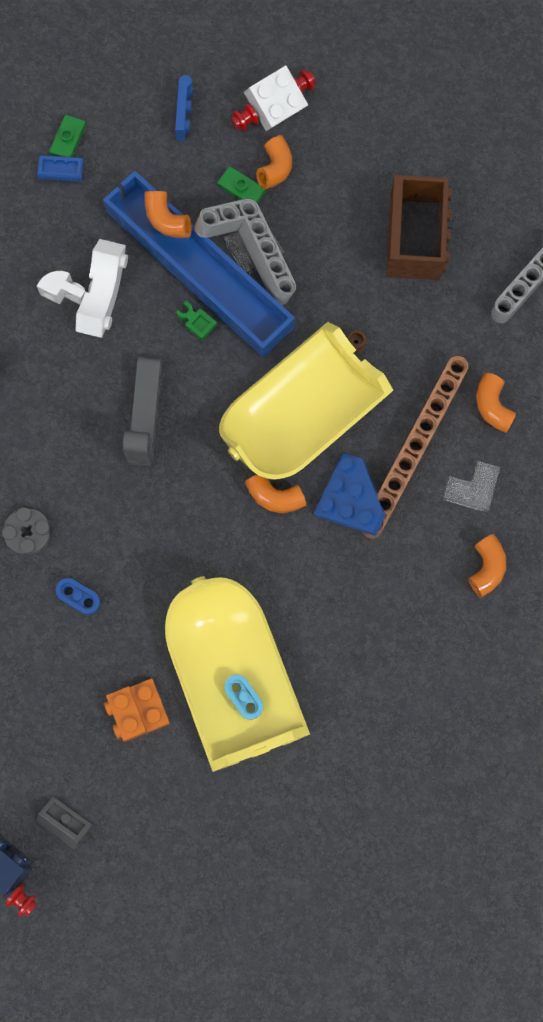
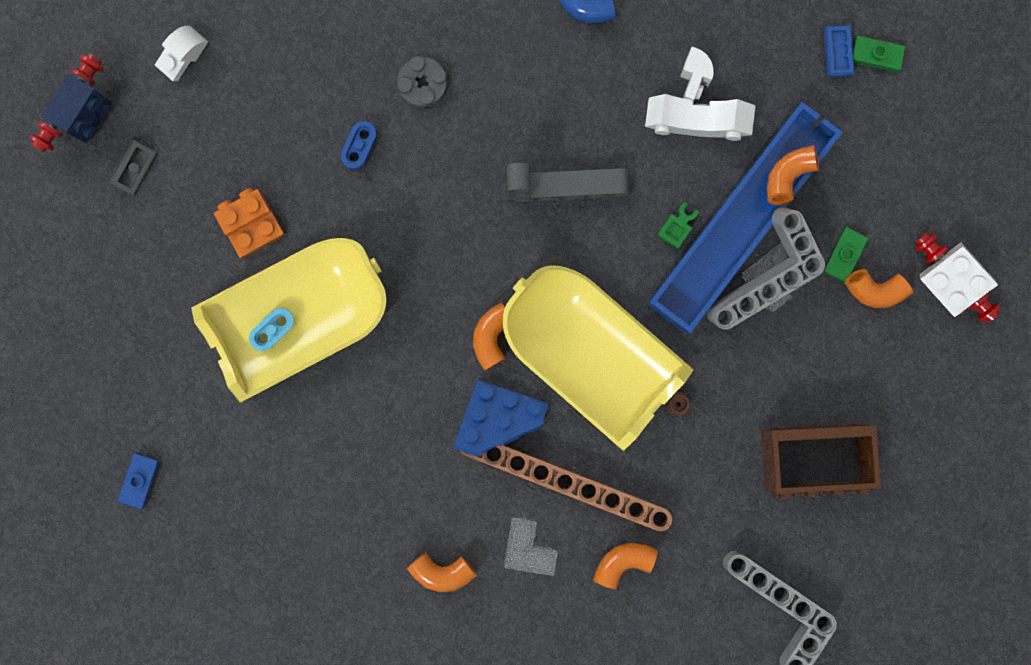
camera: 85 degrees right, 10 degrees up
(184, 106) = (933, 176): blue plate -> none
(374, 847) = (138, 480): none -> blue plate

